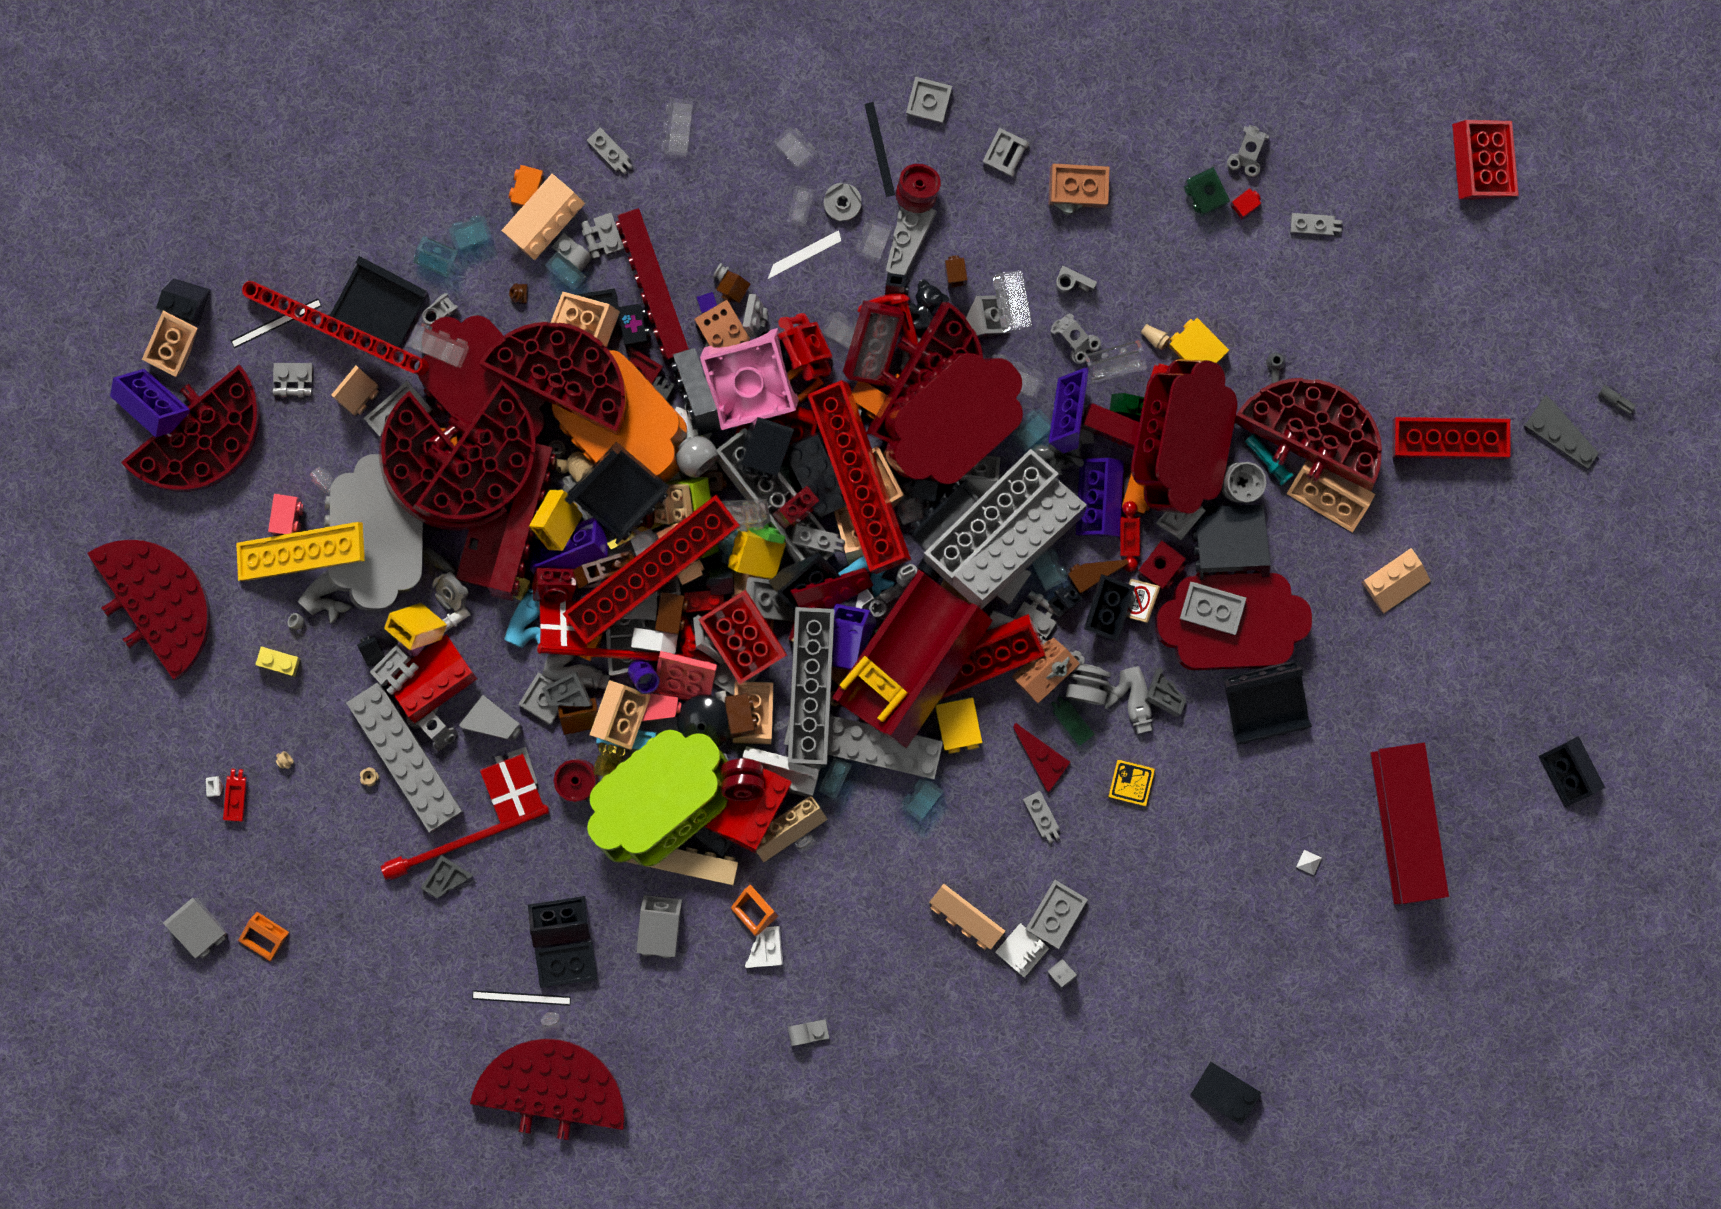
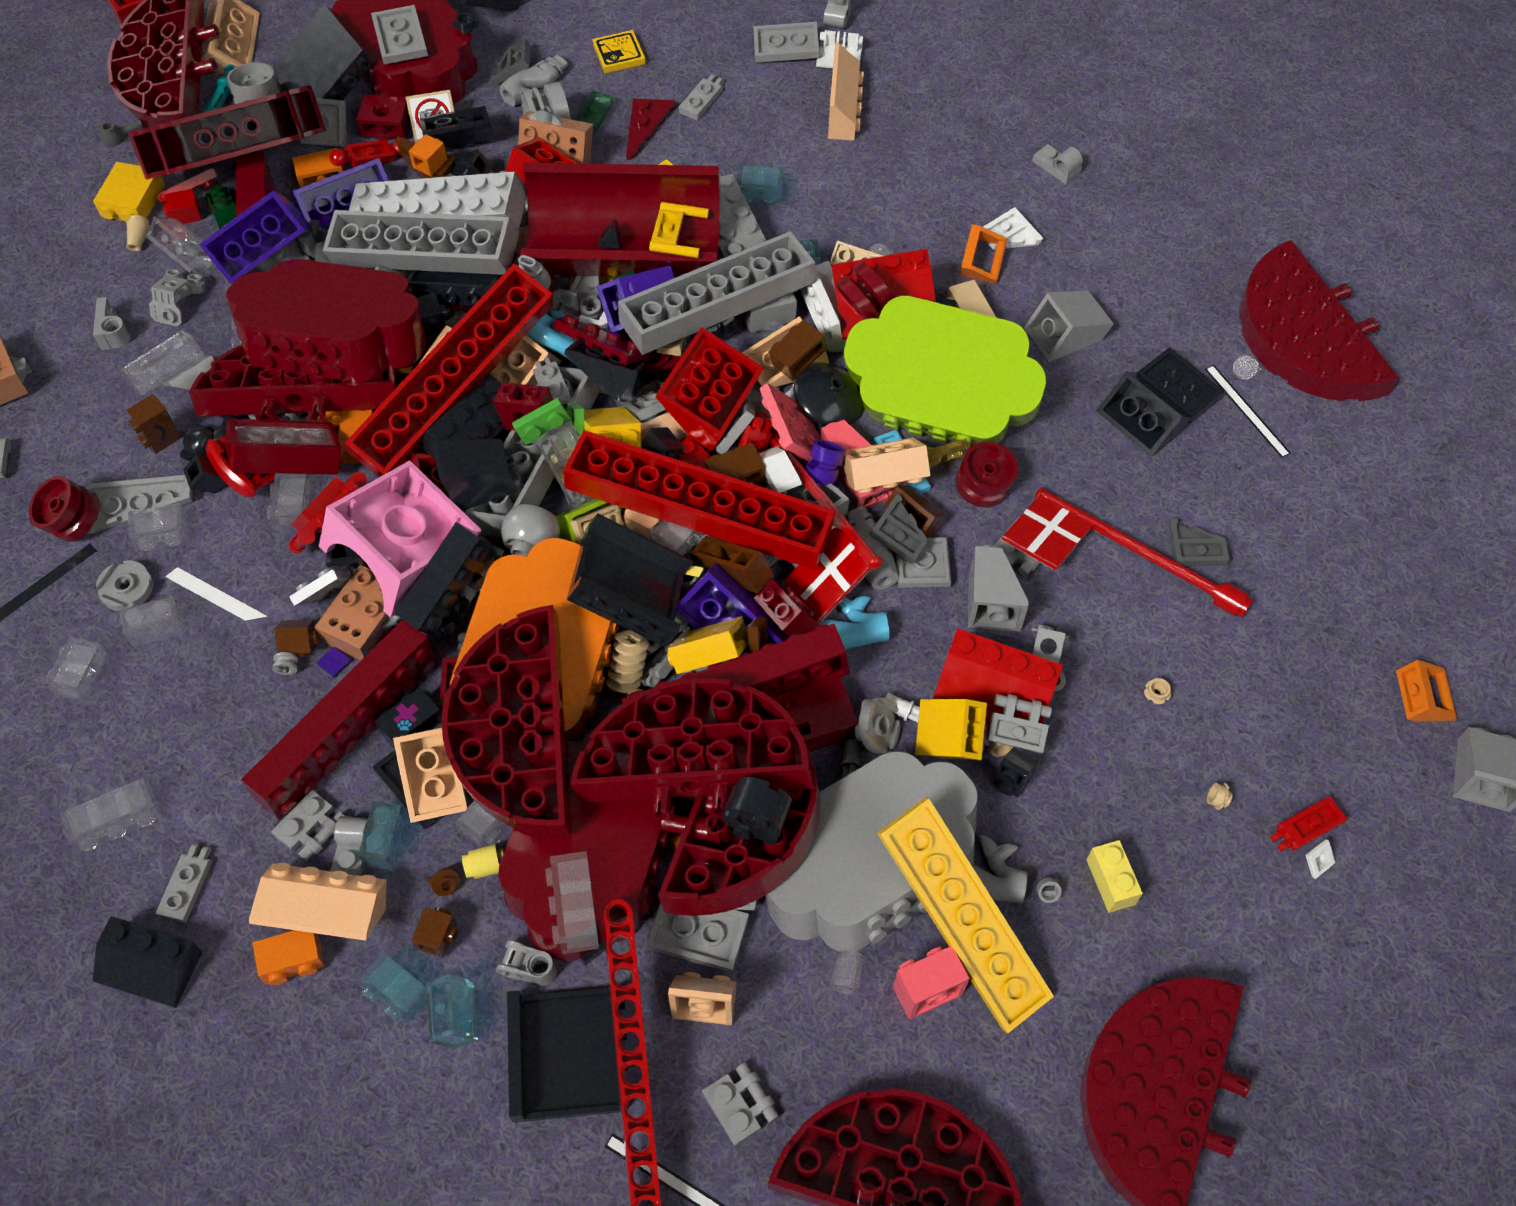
camera: 120 degrees left, 25 degrees down
(404, 757) = (1104, 665): light grey brick -> none
(414, 466) = (756, 810): none -> black brick
(487, 272) = (435, 931): none -> reddish brown brick
(514, 318) = (482, 861): none -> light yellow brick
(543, 551) = (756, 634): none -> reddish brown plate
(573, 109) = (144, 961): none -> black slope
(770, 514) = (540, 421): none -> bright green plate
(903, 642) = (610, 236): none -> black slope
(1086, 571) = (428, 155): none -> orange brick
(1194, 669) = (465, 23): none -> black plate

